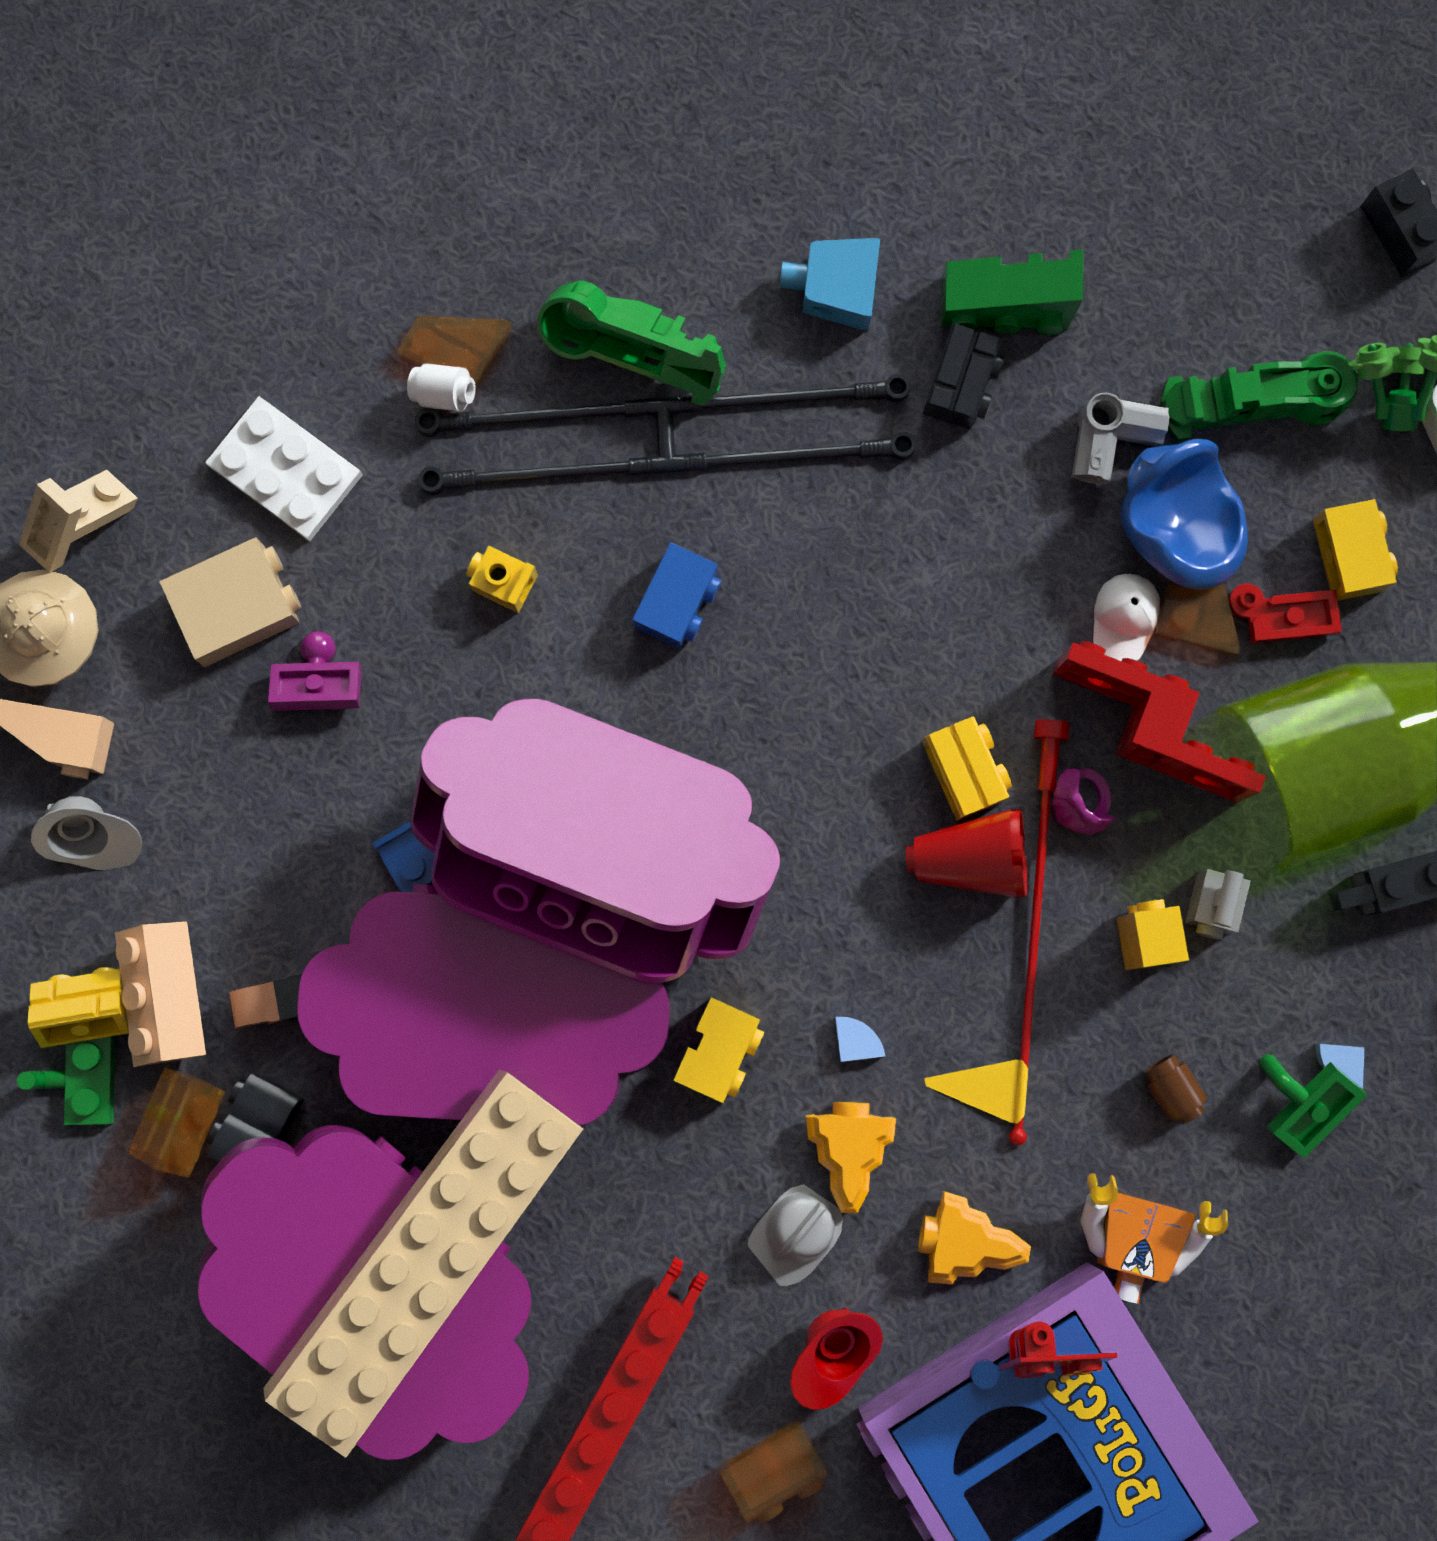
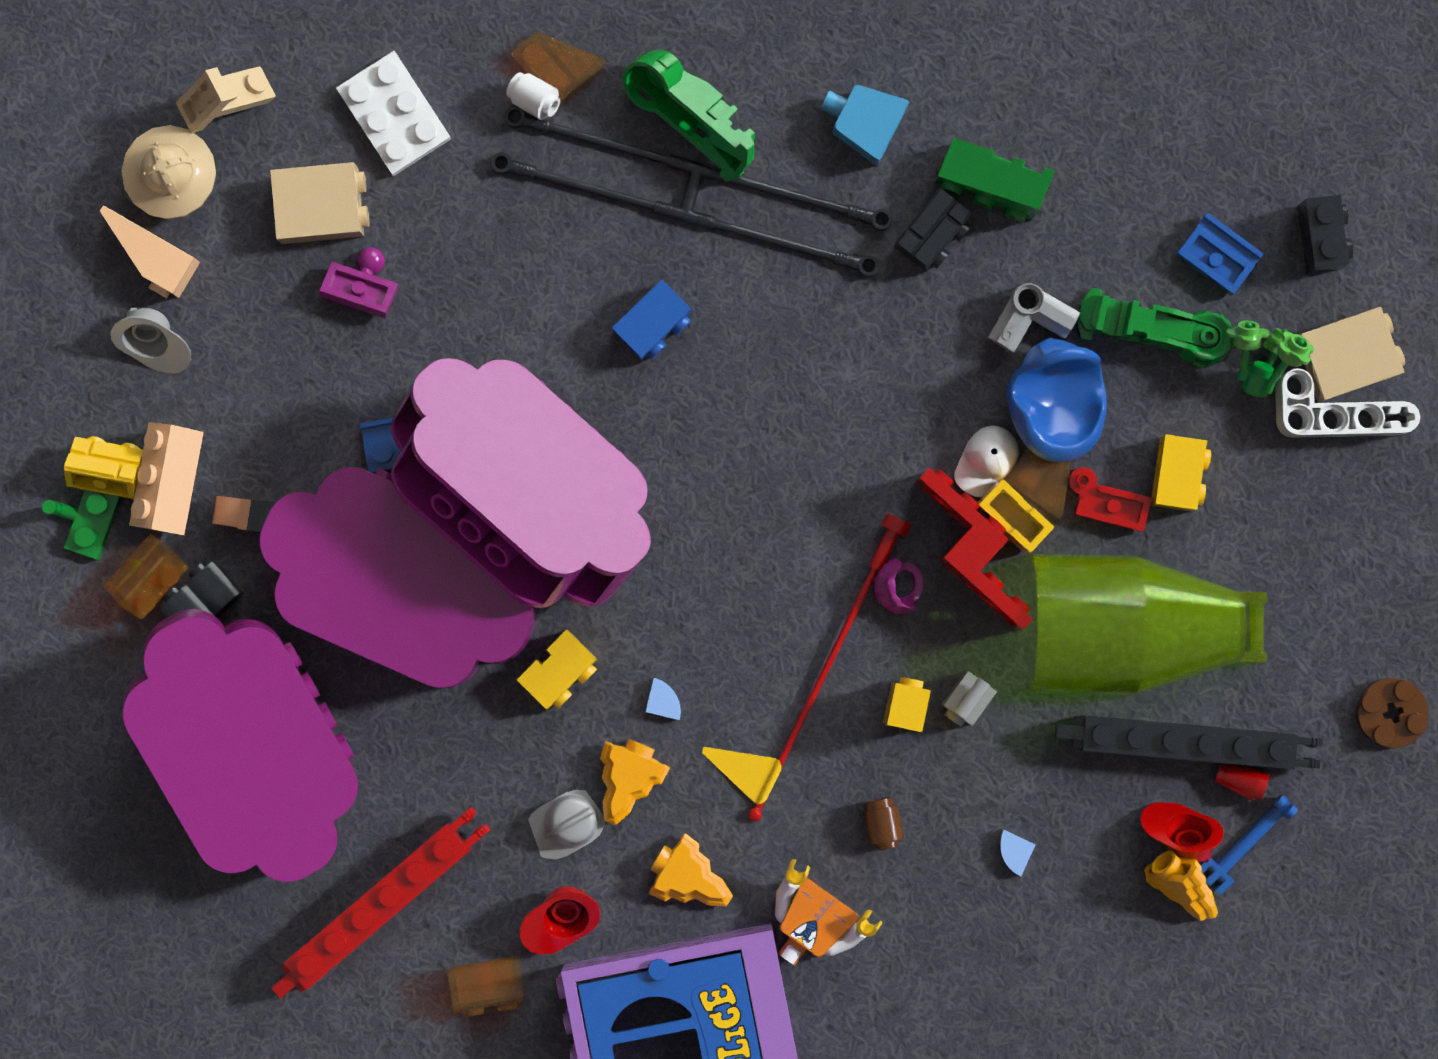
camera: 25 degrees right, 5 degrees up
(421, 1263) = (289, 740): tan brick -> none
(509, 591) = (531, 270): yellow brick -> none
(967, 768) = (820, 530): yellow brick -> none
(974, 855) = (801, 598): red cone -> none
(1034, 1354) = (695, 968): red hinge -> none
(1205, 669) = (1022, 522): none -> yellow brick
(1297, 288) = (1219, 254): none -> blue plate
(1312, 1109) = (978, 874): green plate -> none

